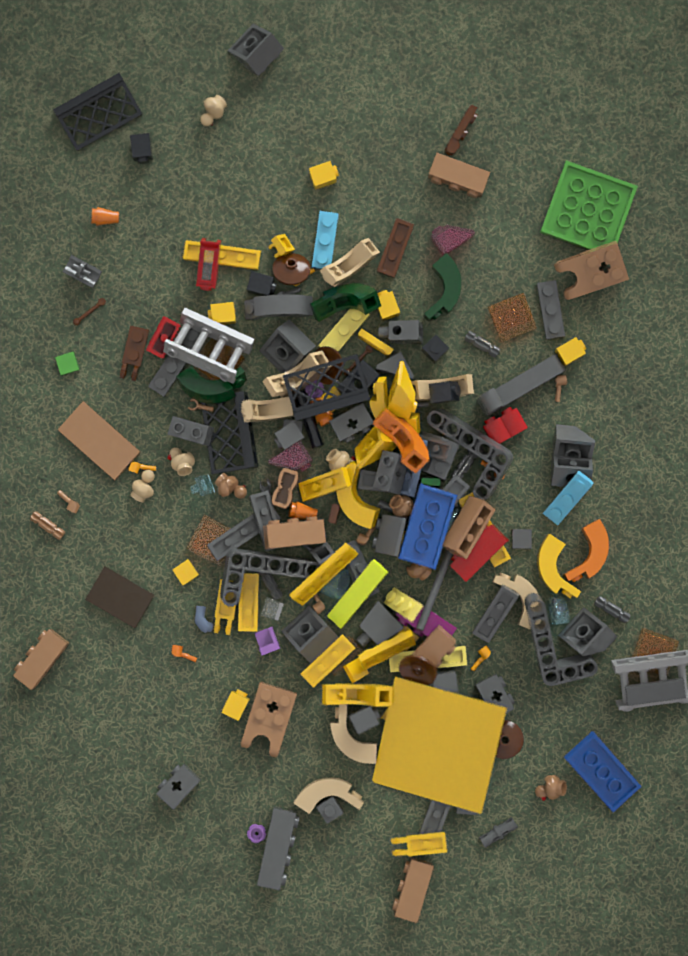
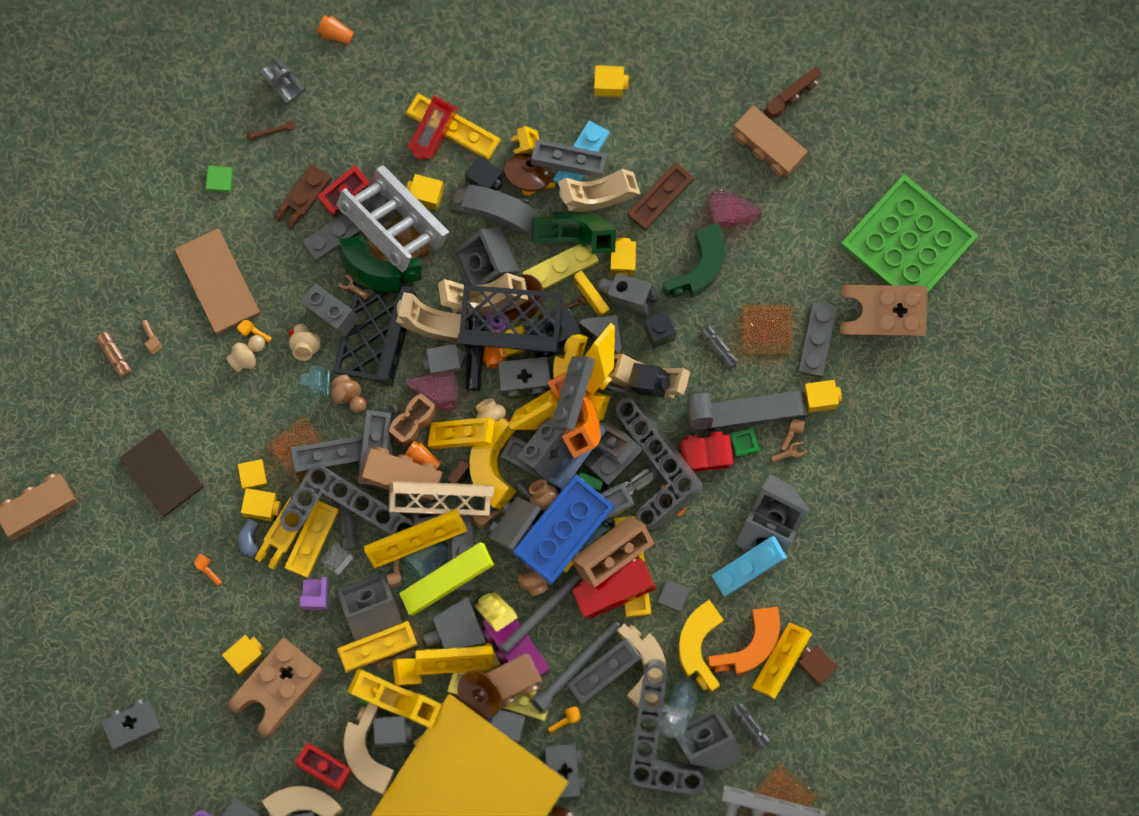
camera: 20 degrees right, 10 degrees down
(201, 593) = (260, 505): none -> yellow brick
(318, 247) = (569, 158): none -> dark grey plate
(326, 761) = (323, 767): none -> red brick
(329, 534) = (440, 489): none -> tan fence
(396, 427) = (572, 393): none -> dark grey plate
(461, 651) = (543, 699): none -> dark grey piece
(528, 407) = (744, 442): none -> green tile
(560, 631) = (674, 722): none -> clear bracket
(565, 400) = (790, 452): none -> medium nougat hand
(617, 555) = (781, 660): none -> yellow plate
(642, 548) = (816, 665): none -> reddish brown brick

